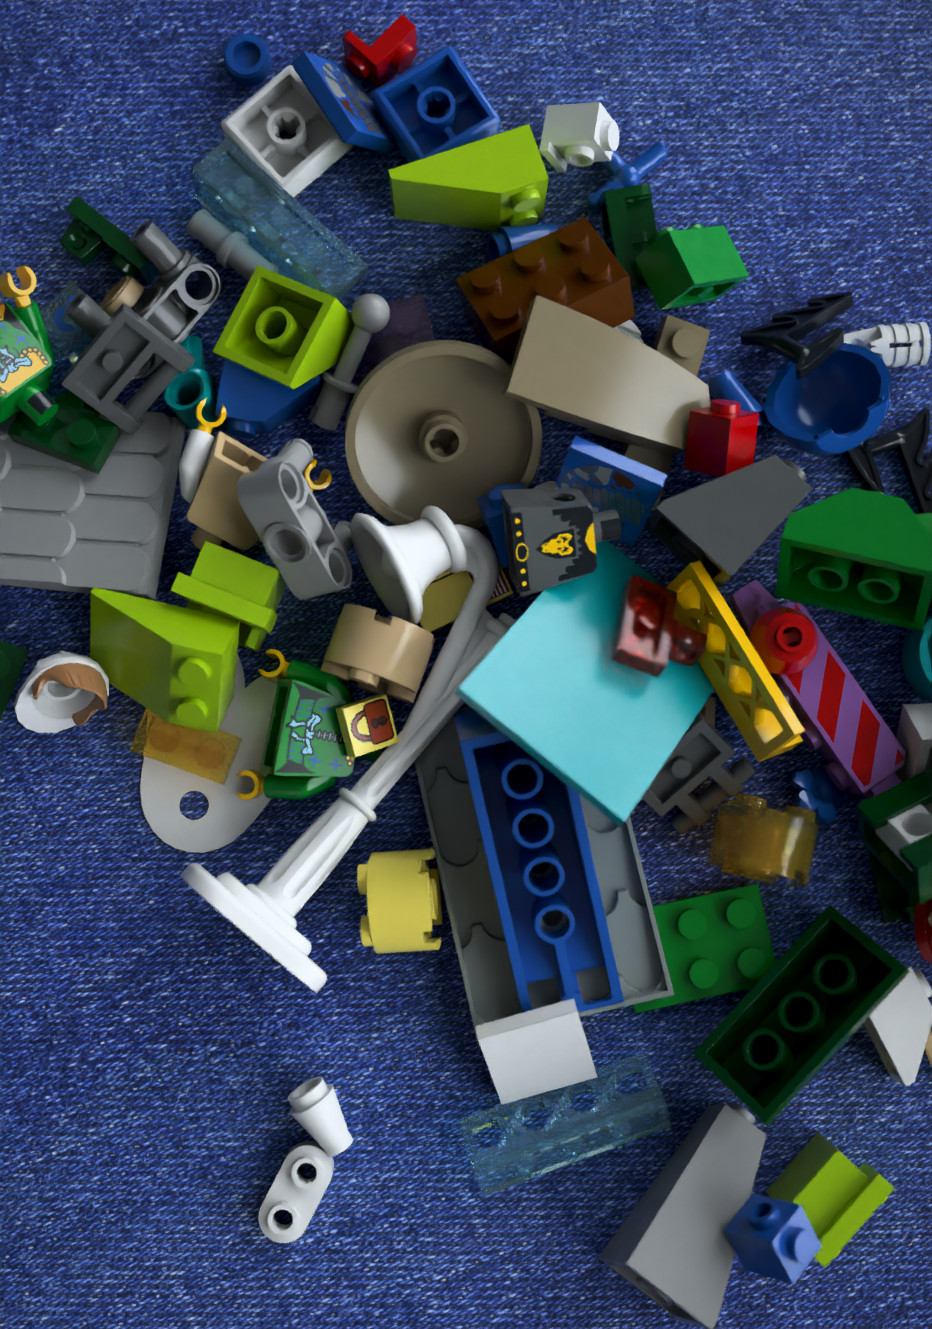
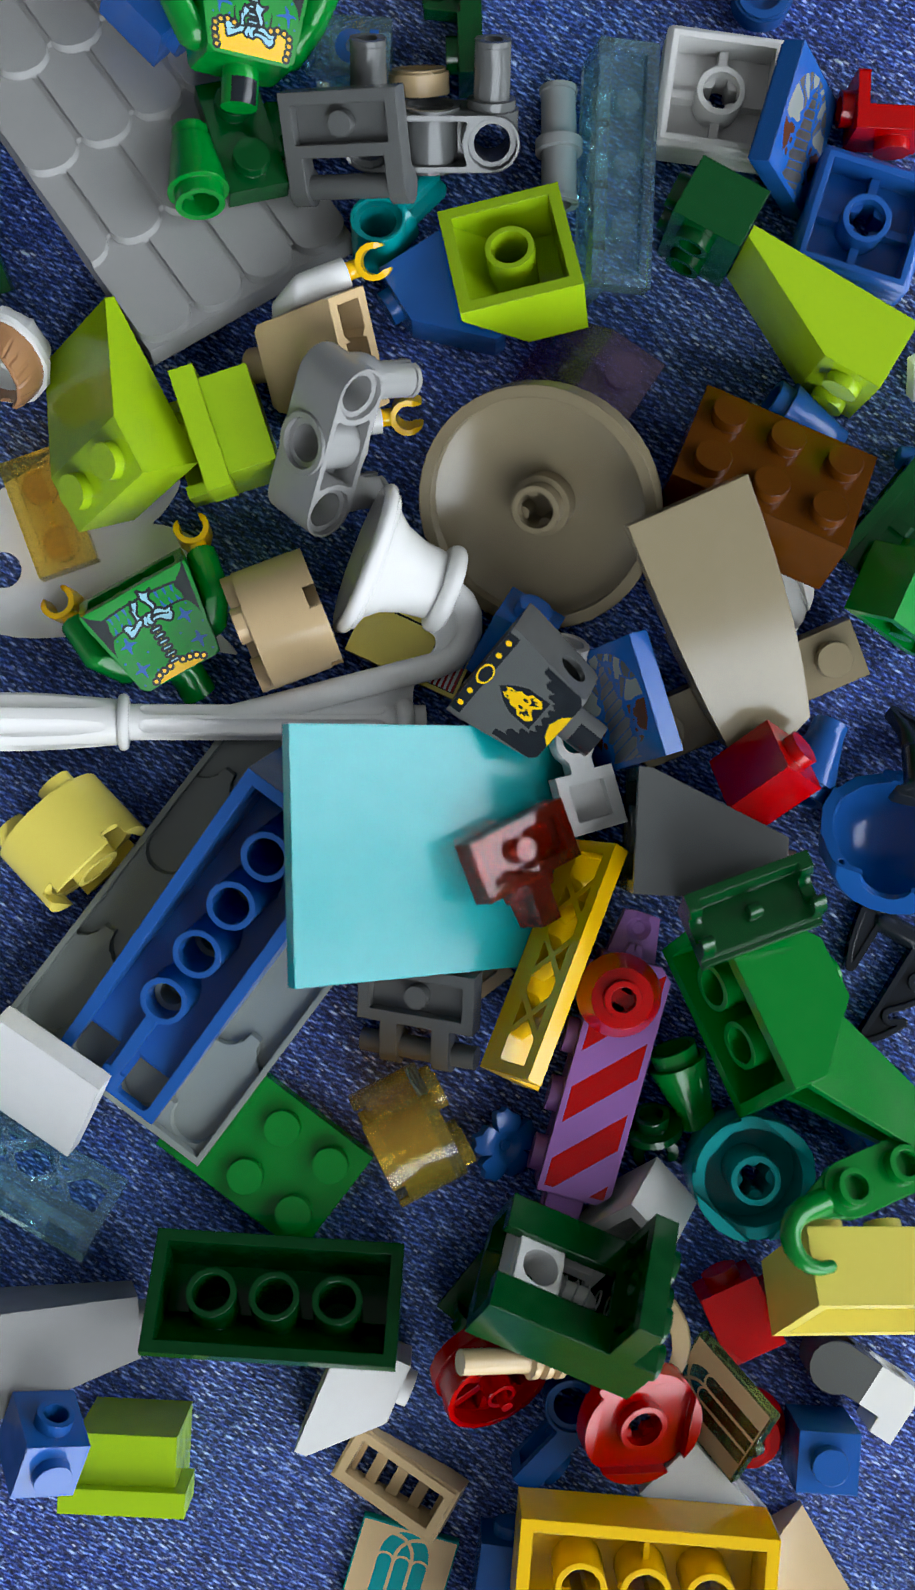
camera: 60 degrees right, 5 degrees up
(63, 475) = (195, 172): none -> green cone
(358, 197) = (708, 220): none -> dark green brick
(367, 725) = (204, 667): tile -> none
(370, 315) = (599, 333): light grey pin -> none
(640, 556) = (586, 791): none -> white plate
(803, 510) = (752, 910): none -> dark green hinge
(867, 649) = (684, 1080): none -> green cone
(885, 691) = (654, 1129): none -> dark green plate

